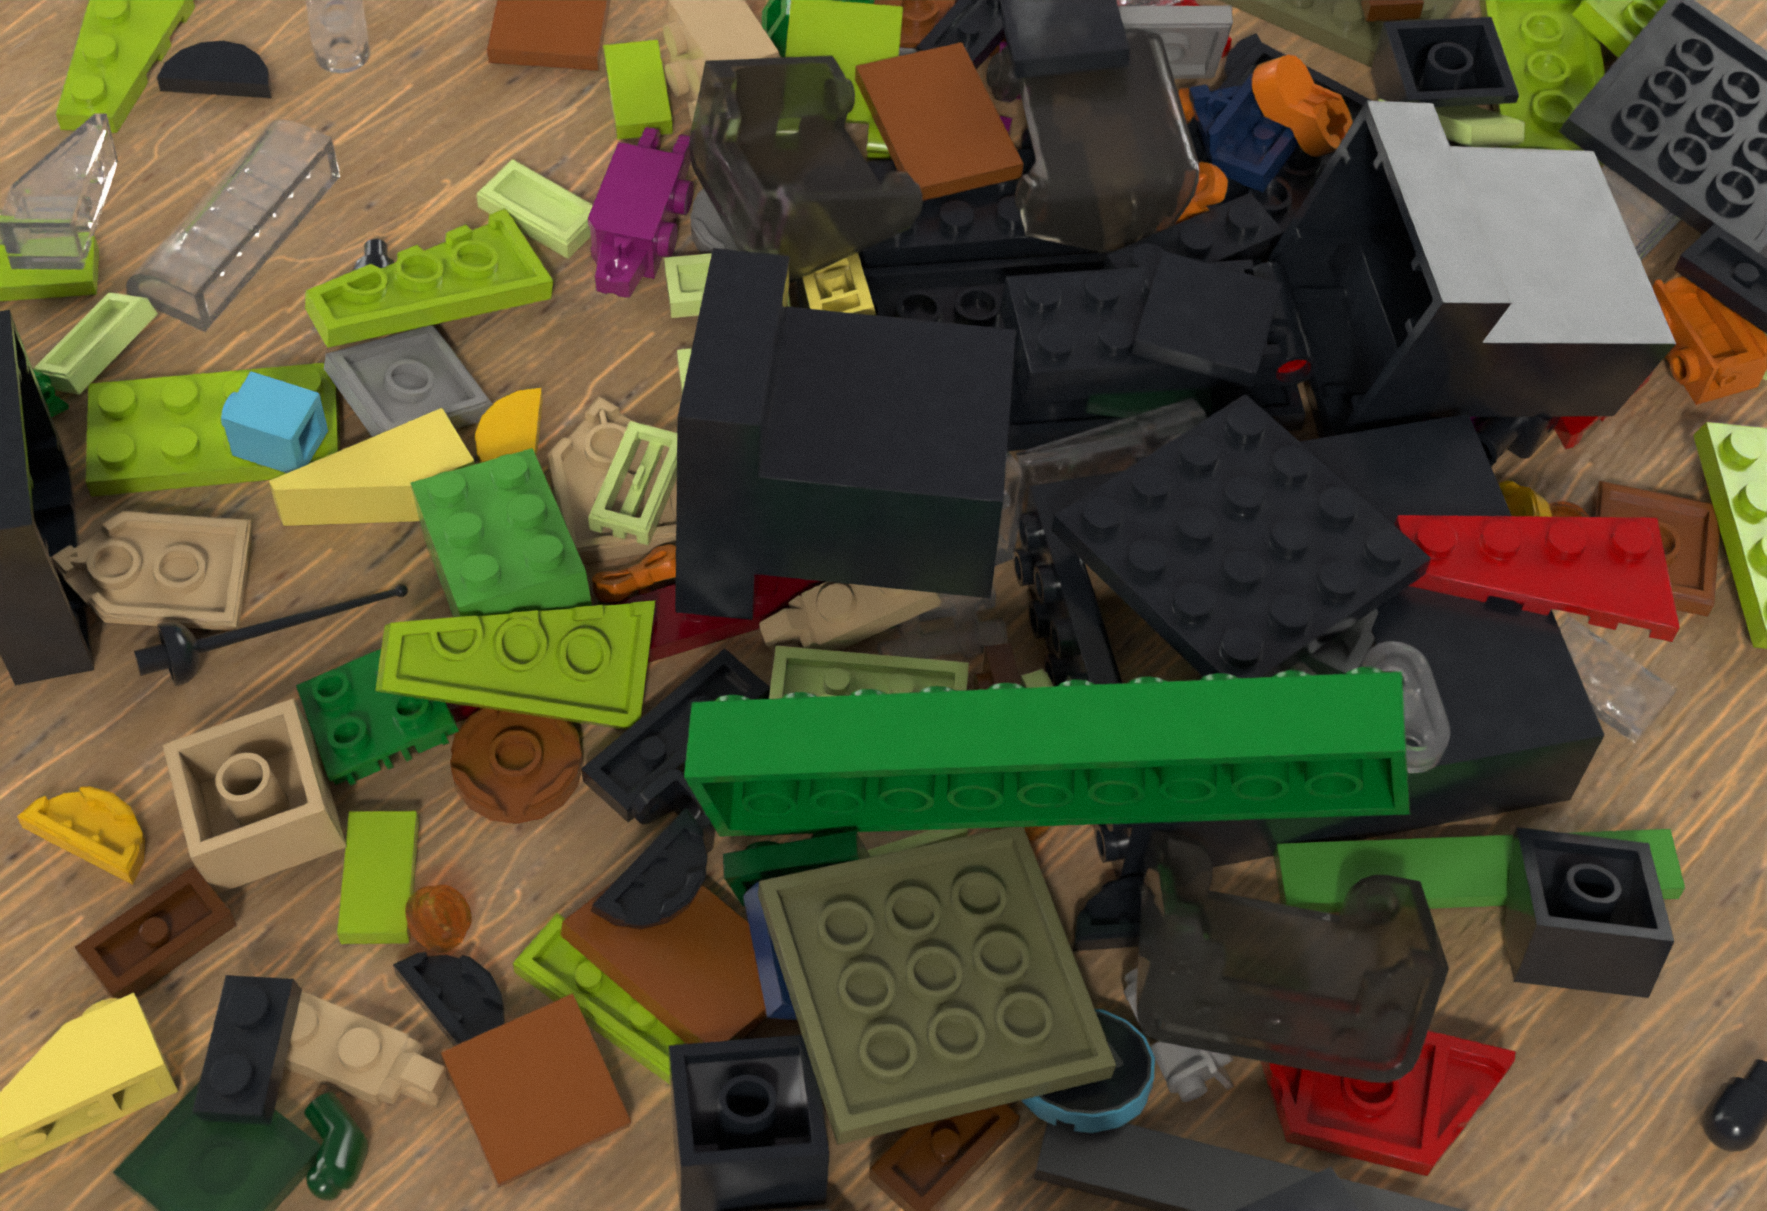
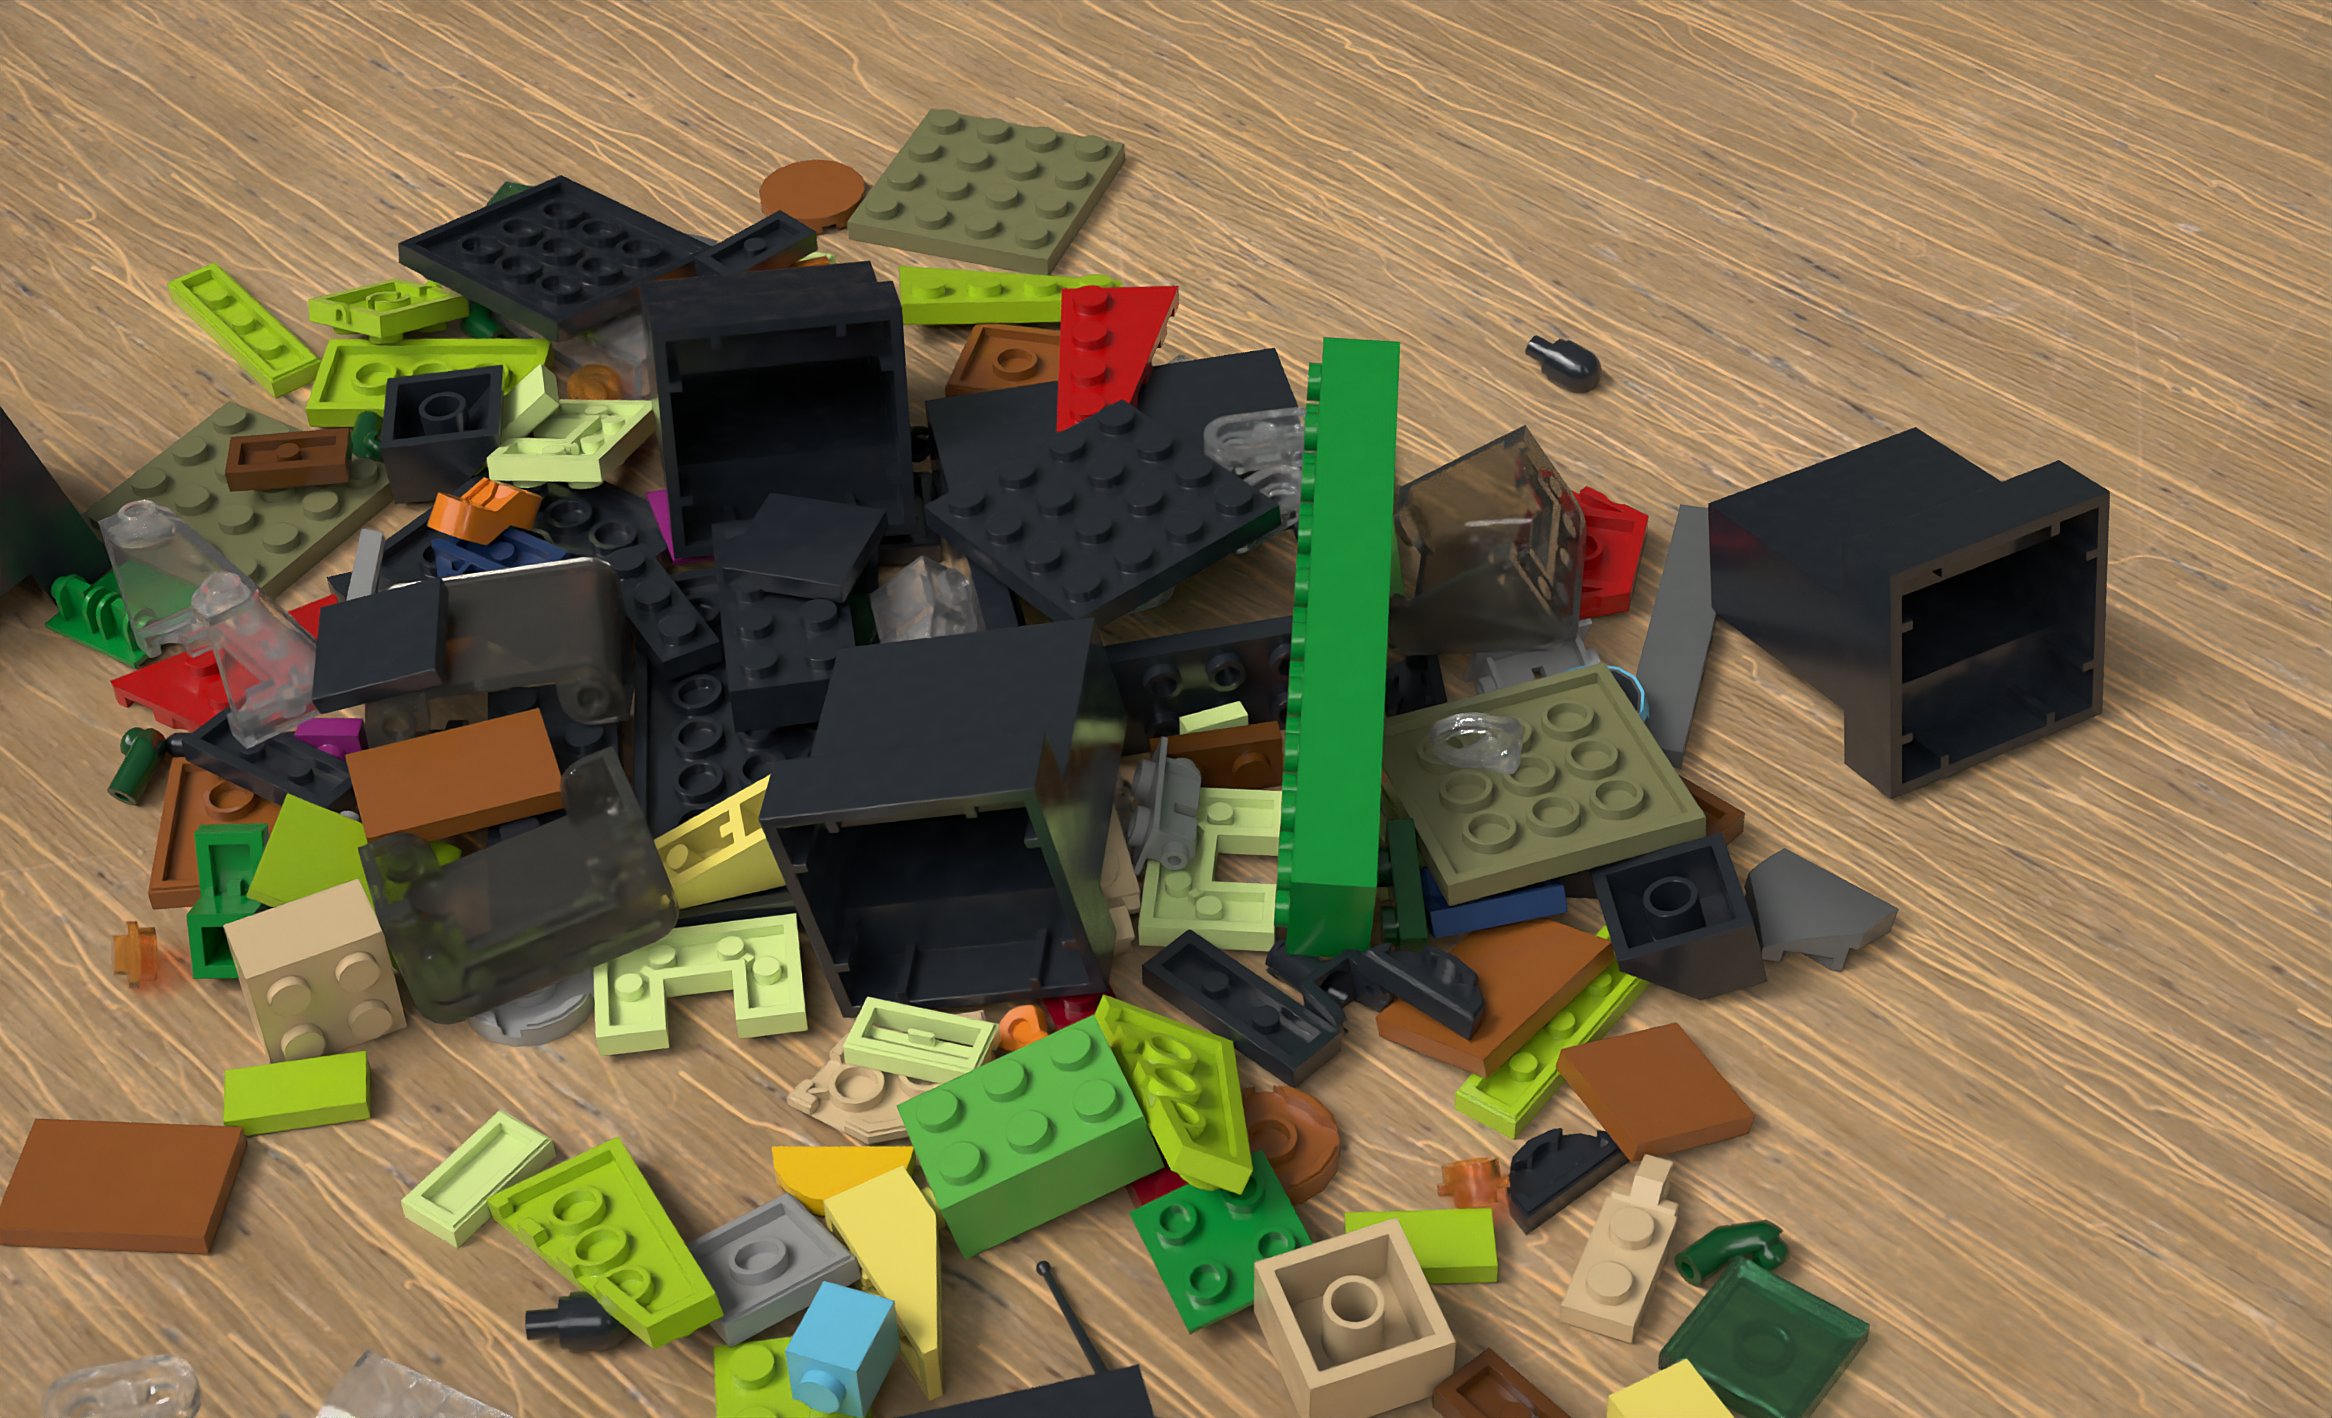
camera: 85 degrees left, 15 degrees down
(247, 1050) = (1652, 1306): black plate -> none
(638, 211) = (513, 1065): magenta hinge -> none
(887, 649) = (1164, 820): none -> light grey hinge
(947, 920) = (1495, 752): none -> clear piece
(1585, 913) = (1432, 412): black slope -> none

